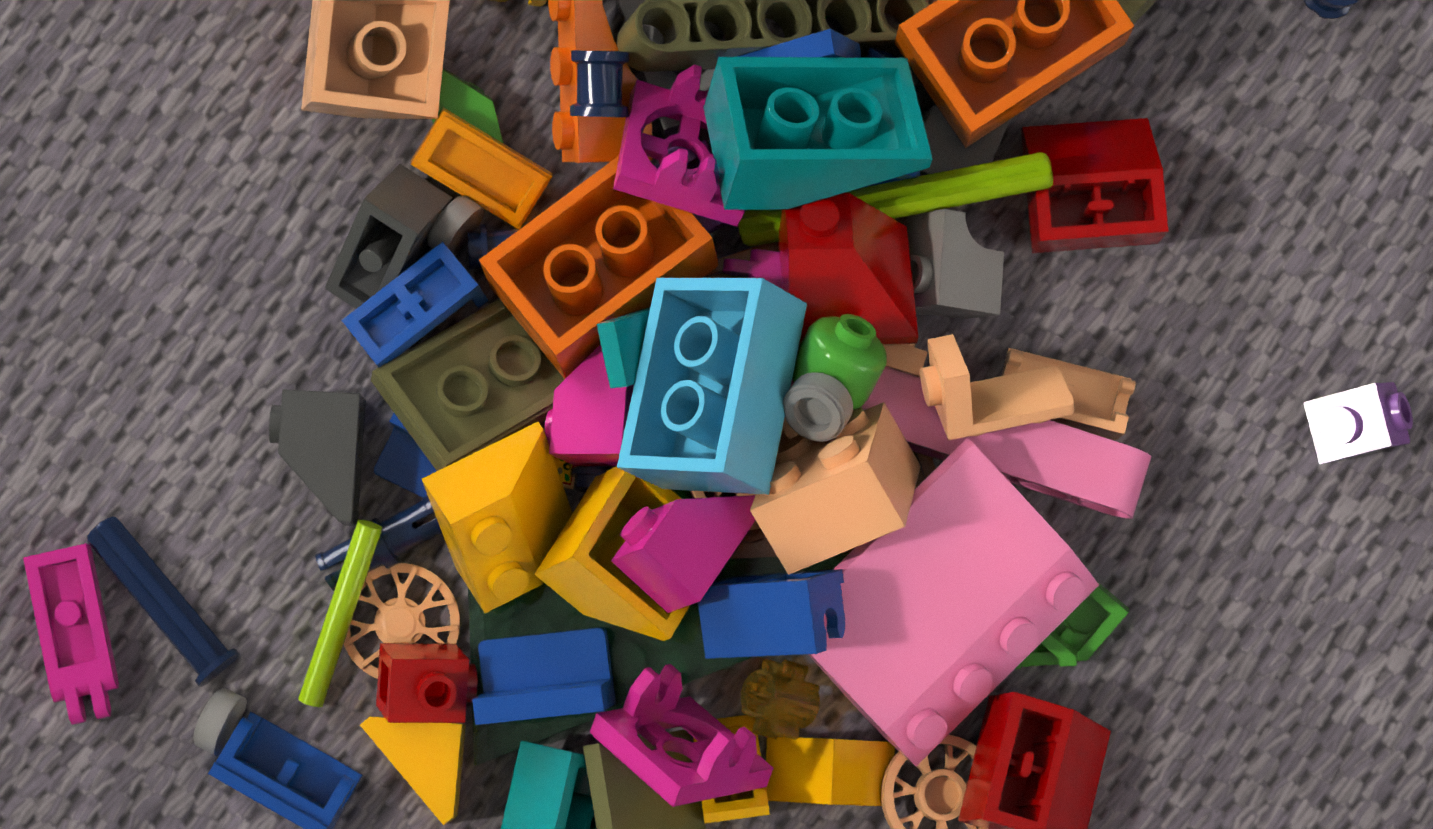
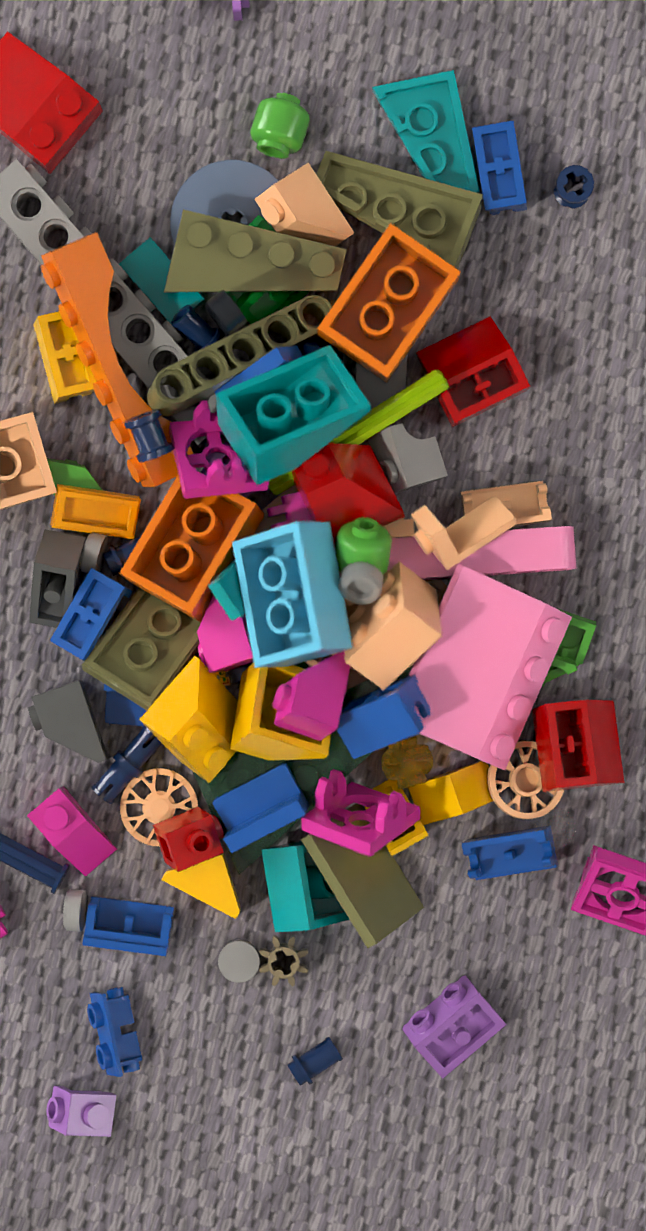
camera: 20 degrees left, 5 degrees up
(261, 605) = (72, 831): none -> dark pink slope
(340, 613) = (121, 816): lime bar -> none

